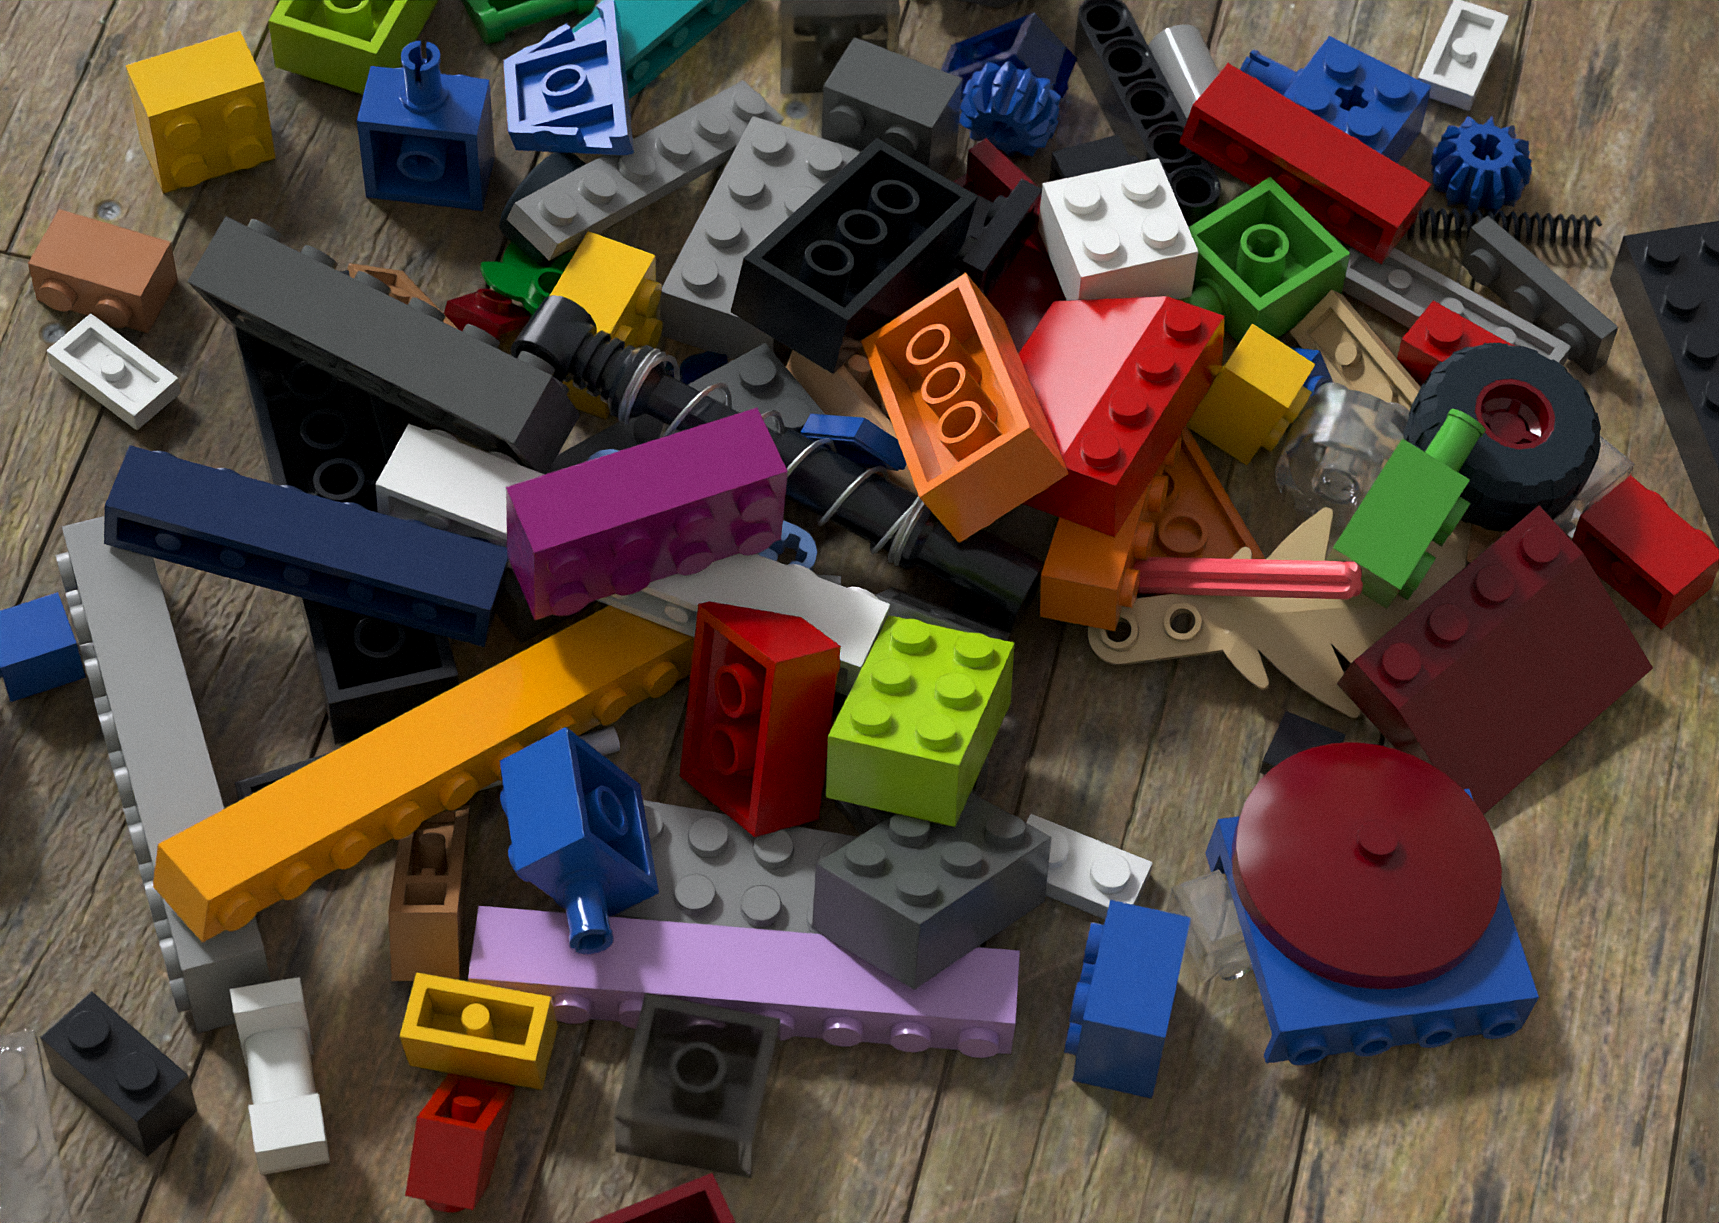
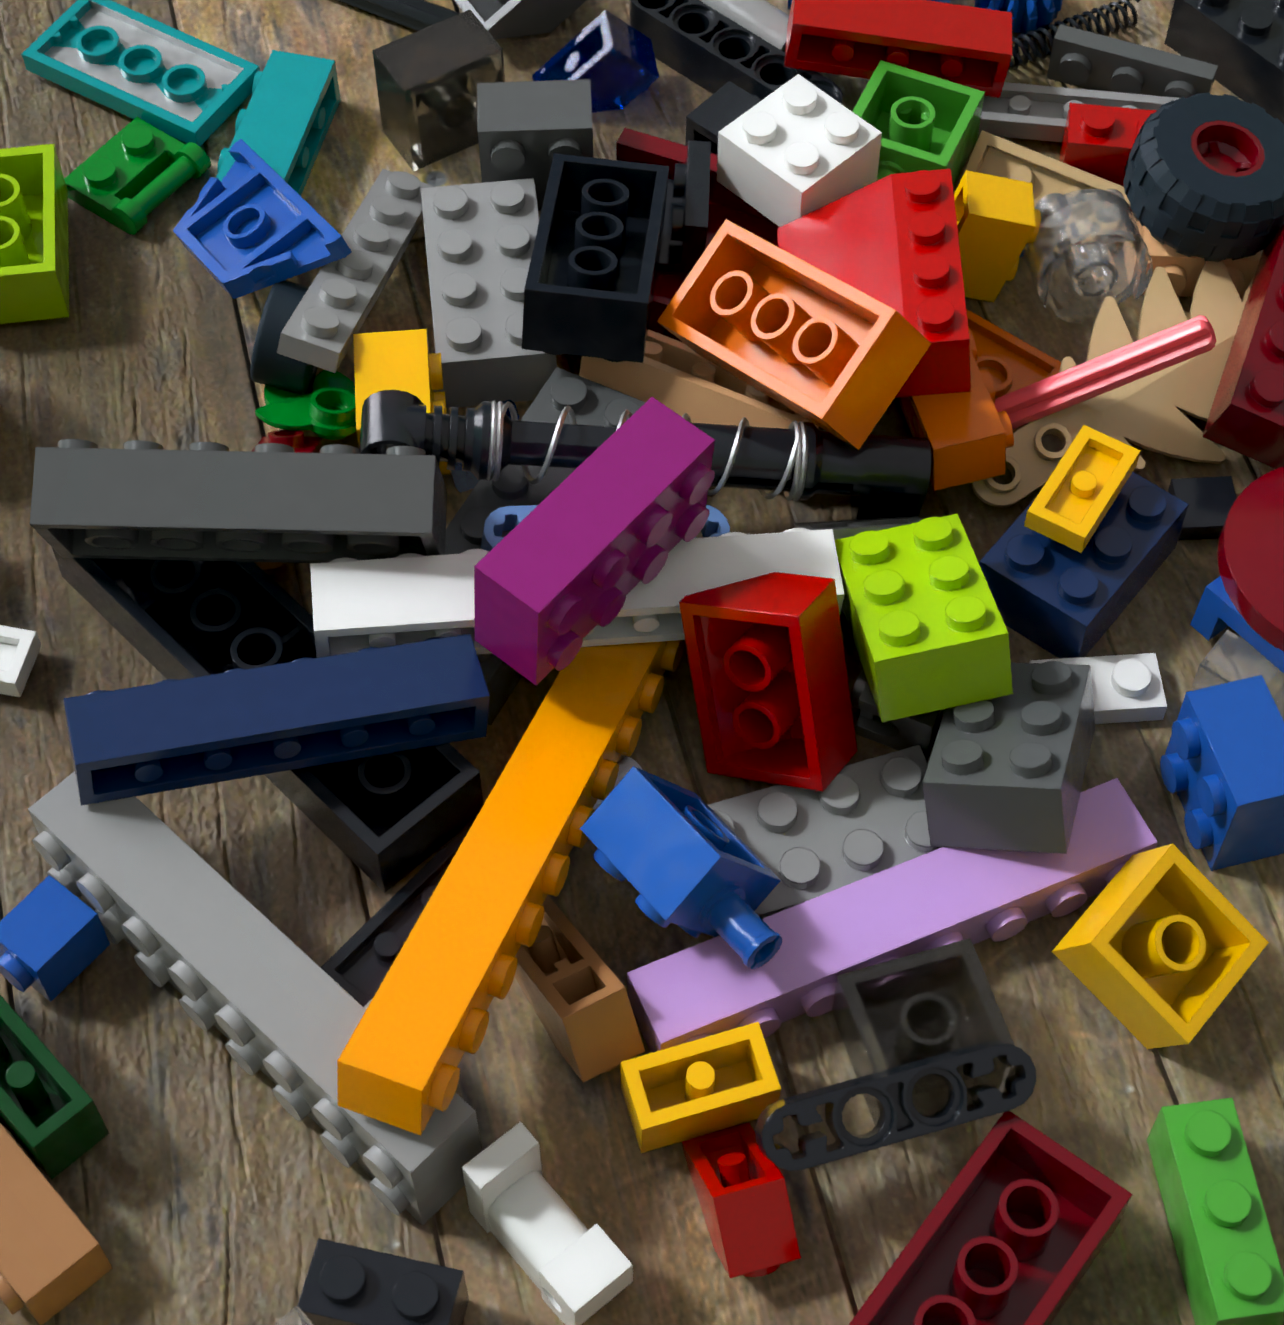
camera: 25 degrees left, 0 degrees up
(426, 133) = (141, 319): blue brick -> none
(615, 1127) = (898, 1114): none -> black beam
(856, 440) = (718, 402): blue tile -> none
(951, 1112) = (1160, 947): none -> yellow brick
(1010, 108) = (628, 96): blue gear -> none
(1141, 738) = (1073, 597): none -> dark blue brick
(1155, 674) = (1082, 488): none -> yellow plate
(1408, 508) = (1200, 258): bright green brick -> none

